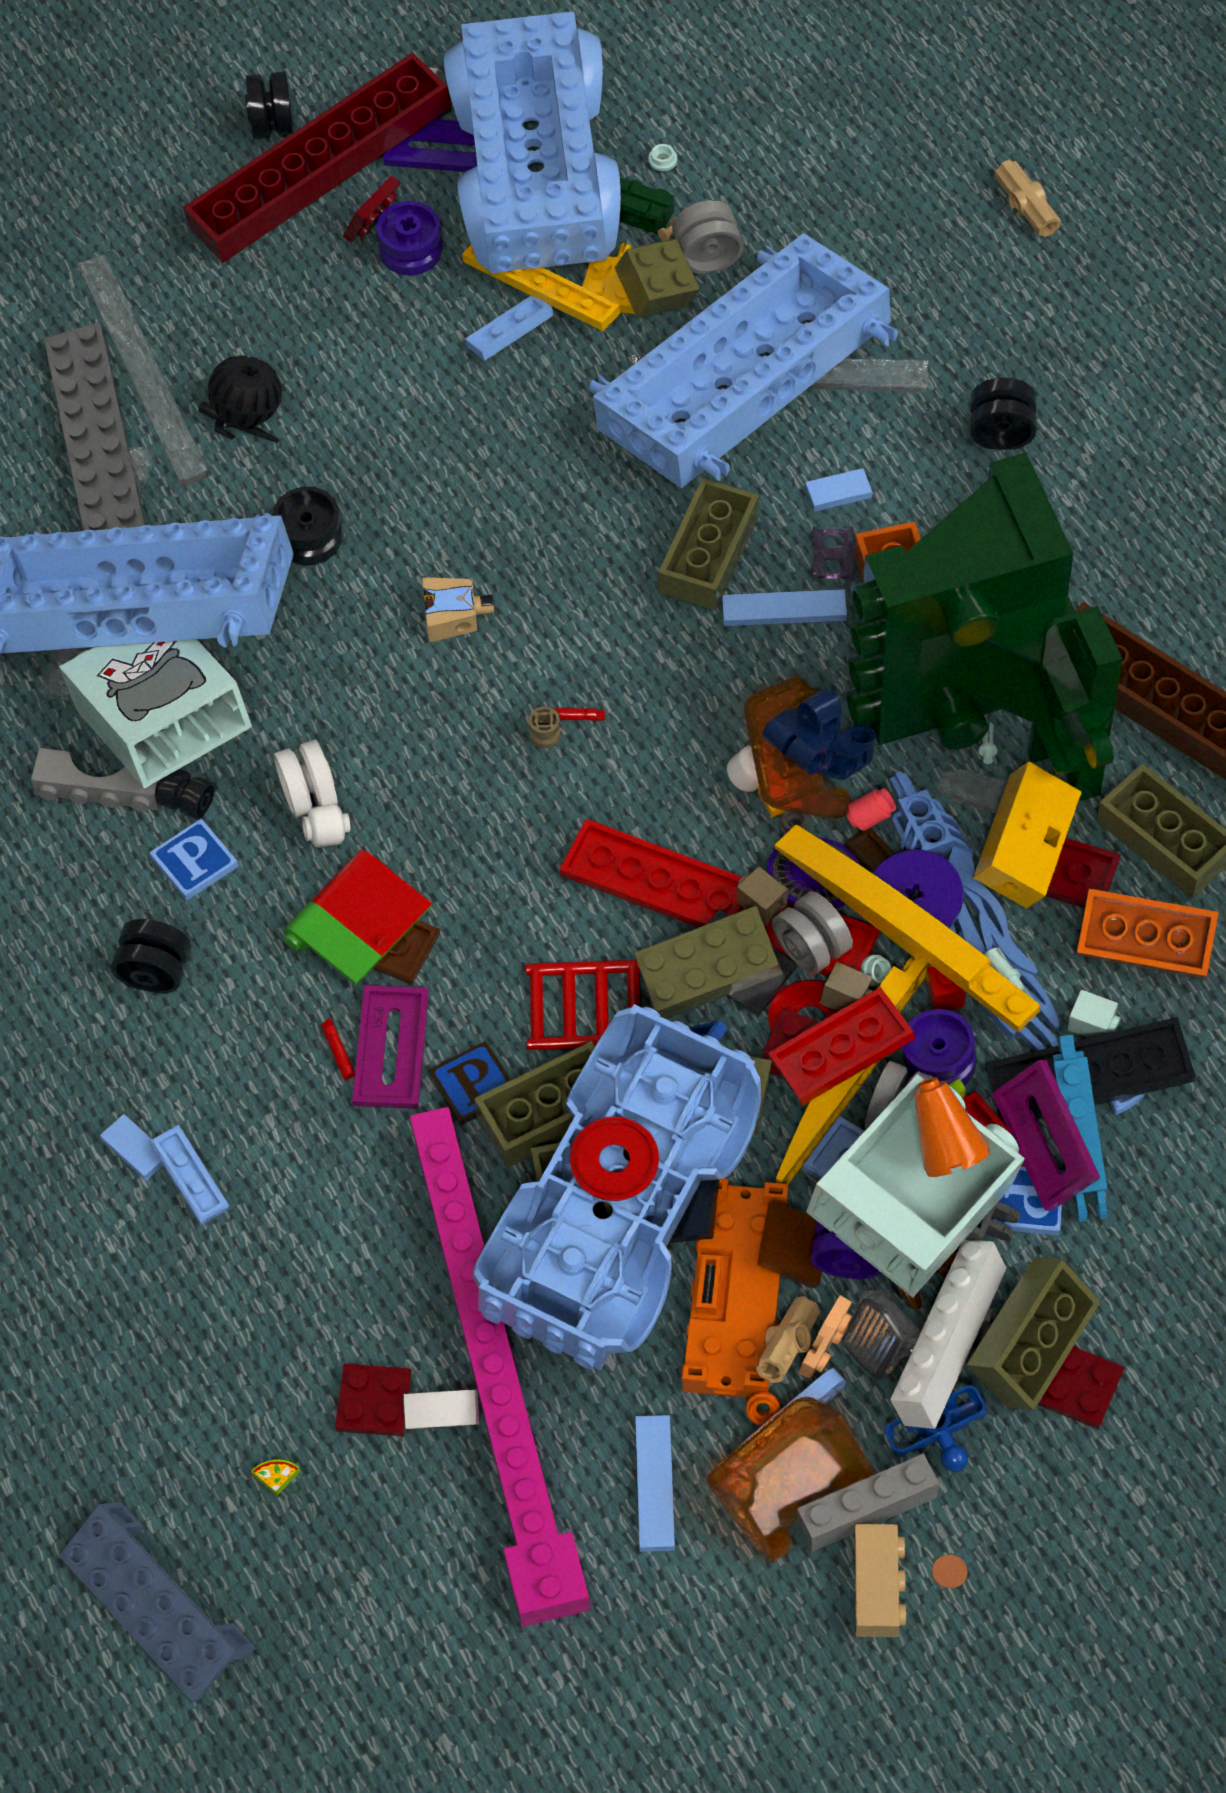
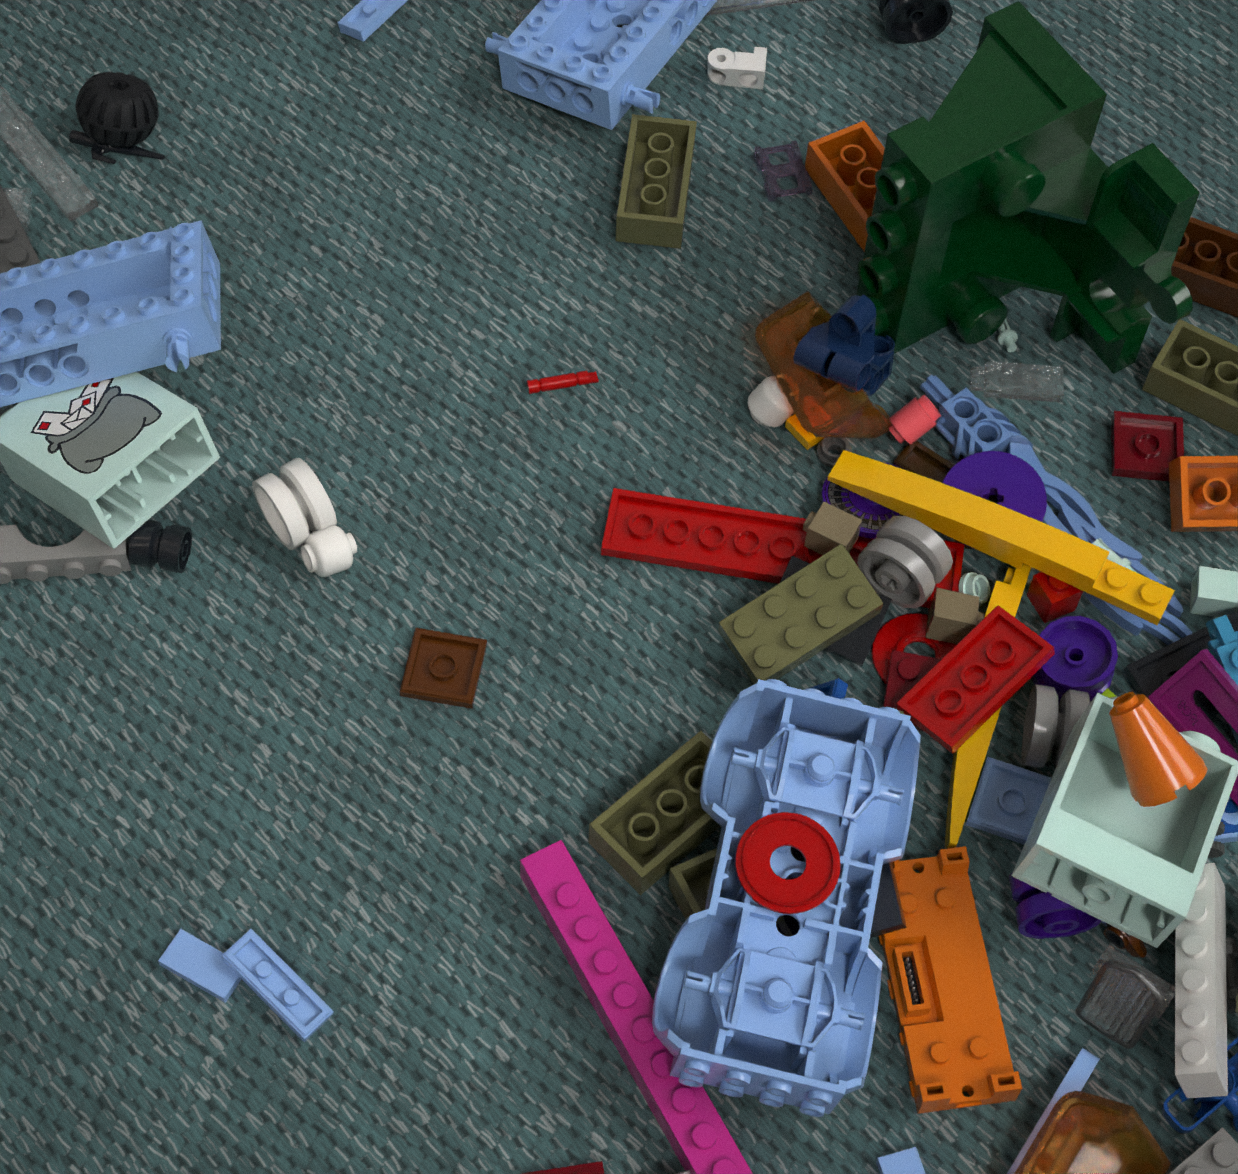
camera: 20 degrees left, 0 degrees up
(150, 956) = (168, 737): black wheel -> none
(193, 859) = (187, 617): tile -> none
(311, 524) = (231, 230): black wheel -> none
(337, 1049) = (409, 799): red wheel -> none
(357, 917) = (391, 645): red door -> none
(376, 1006) = (499, 824): magenta piece -> none
(452, 607) = (402, 293): tan torso -> none
(466, 1078) = (569, 803): tile -> none
(544, 735) = (544, 406): dark tan wheel -> none
(568, 971) = (641, 657): red bar -> none
(761, 1417) = (1024, 1120): orange plate -> none
(784, 607) = (750, 233): light blue tile -> none
(788, 1245) = (988, 914): reddish brown tile -> none
(788, 1339) = (1025, 1027): tan piece -> none
(822, 447) = (737, 68): none -> white leg
(830, 1332) = (1066, 1013): light nougat plate -> none
(838, 489) = (767, 107): light blue tile -> none
(1027, 835) = (1086, 415): yellow brick -> none

